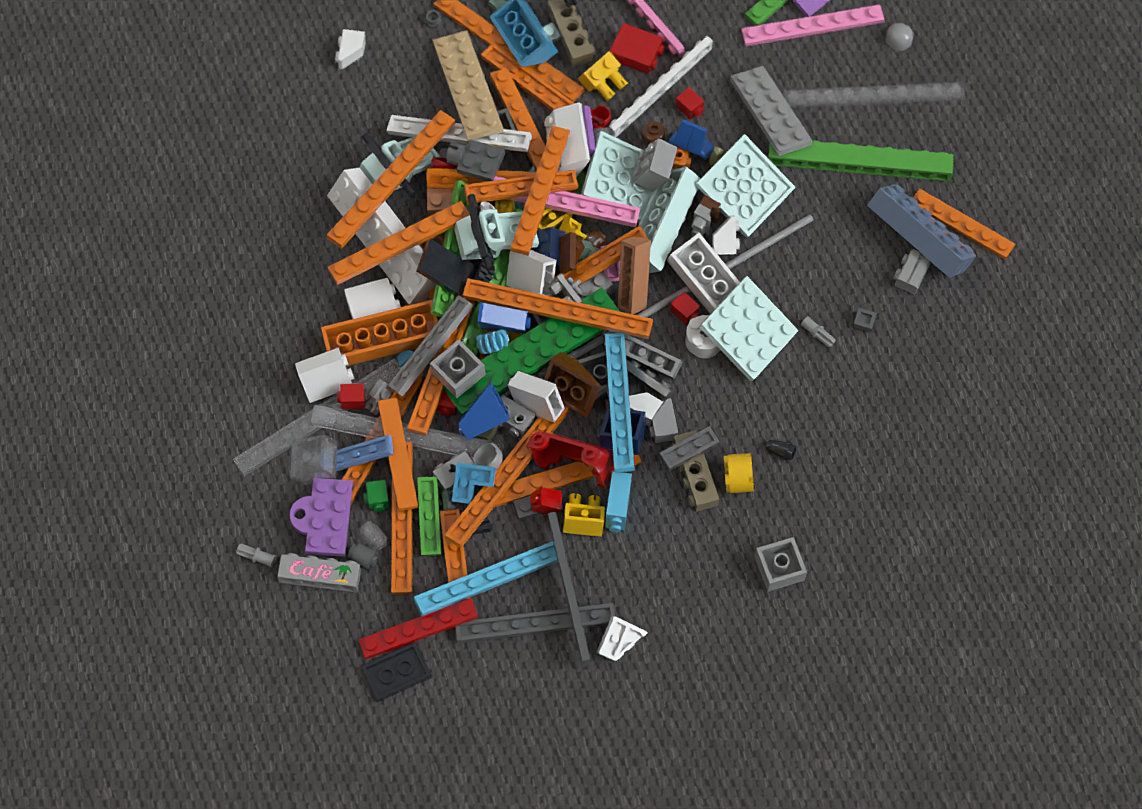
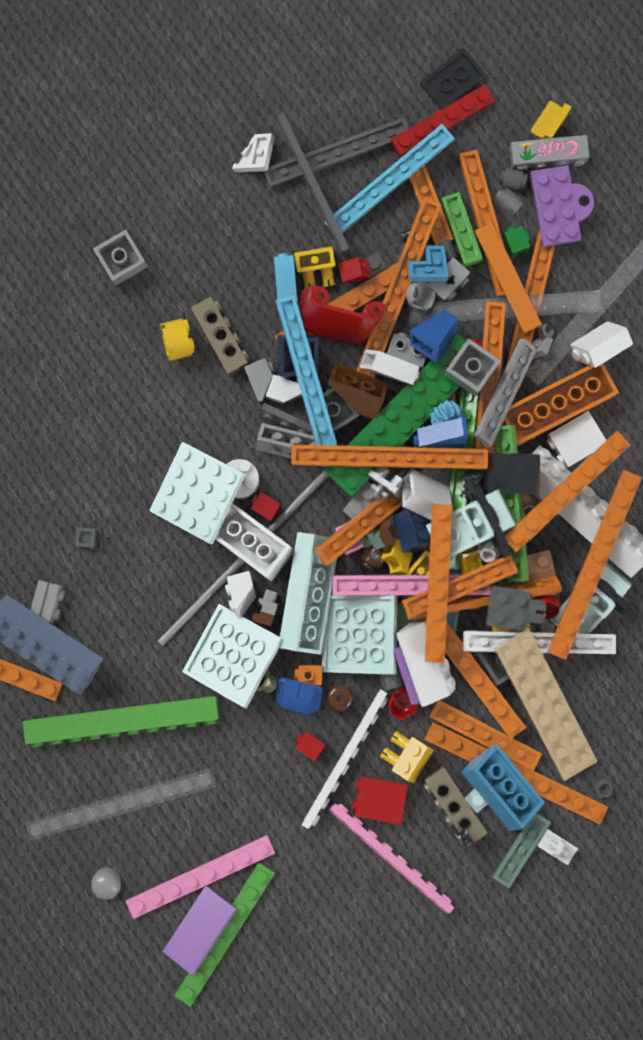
camera: 175 degrees right, 20 degrees up
(256, 555) = (613, 158): light grey axle -> none
(307, 606) = (550, 120): none -> yellow panel
(313, 459) = (586, 257): clear brick -> none
(351, 396) = (568, 329): red brick -> none
(364, 452) = (545, 272): medium blue tile -> none
(403, 357) = (527, 386): dark azure tile -> none
(567, 252) = (394, 524): reddish brown tile -> none
(634, 274) = (322, 518): nougat brick -> none
(654, 164) = (328, 651): light grey brick -> none
(689, 448) = (229, 348): flat silver plate -> none
(771, 110) = (223, 754): light grey plate -> none
(783, 449) = (140, 379): black cone -> none
(818, 331) = (129, 513): light grey axle -> none

